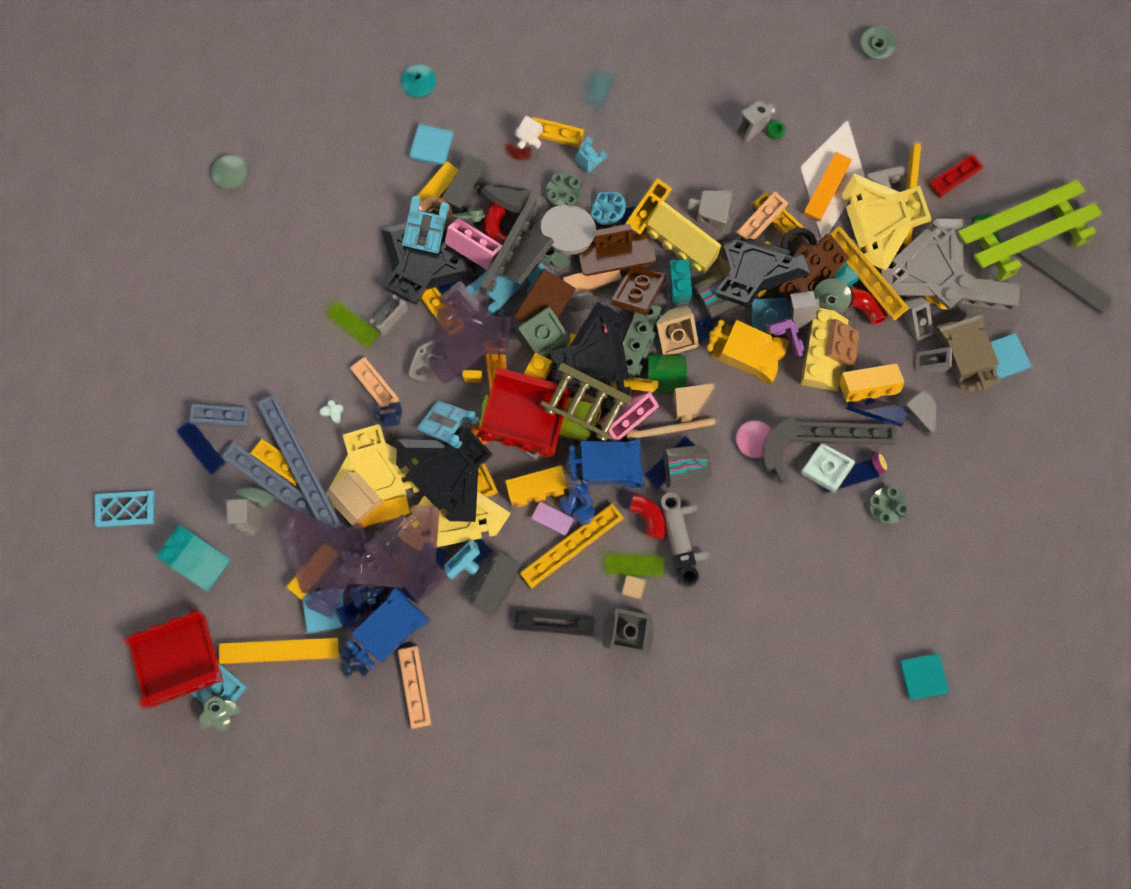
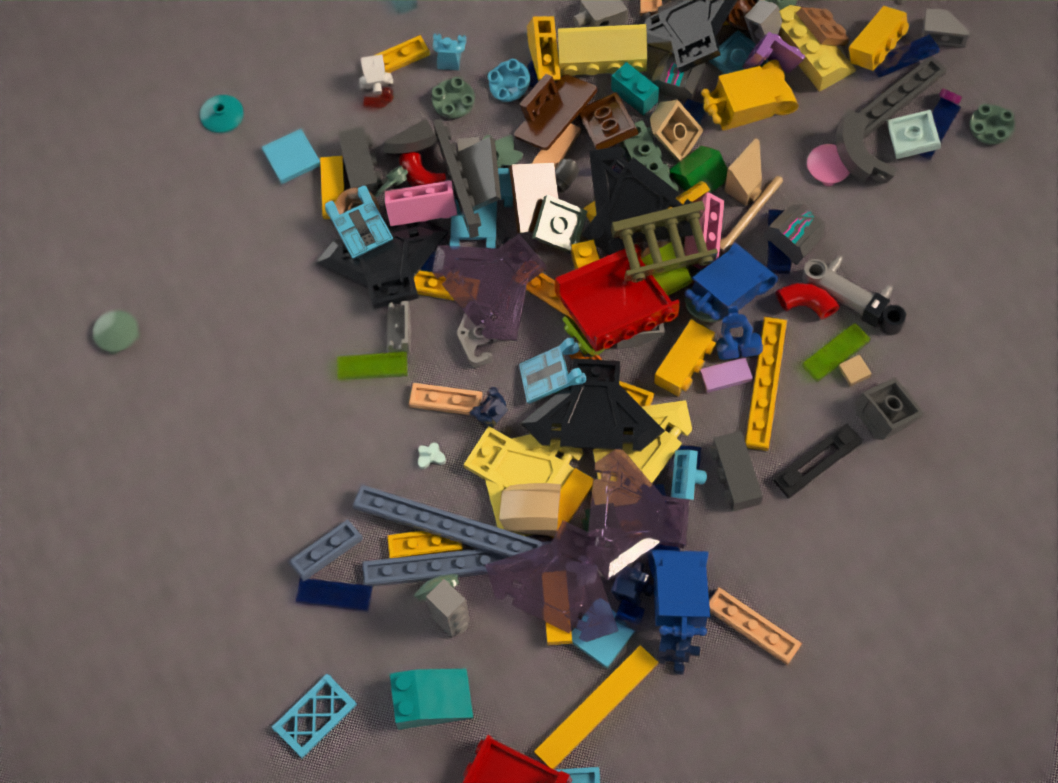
camera: 40 degrees left, 10 degrees down
(472, 376) = (532, 315): yellow tile -> none
(569, 228) = (492, 119): light grey tile -> none

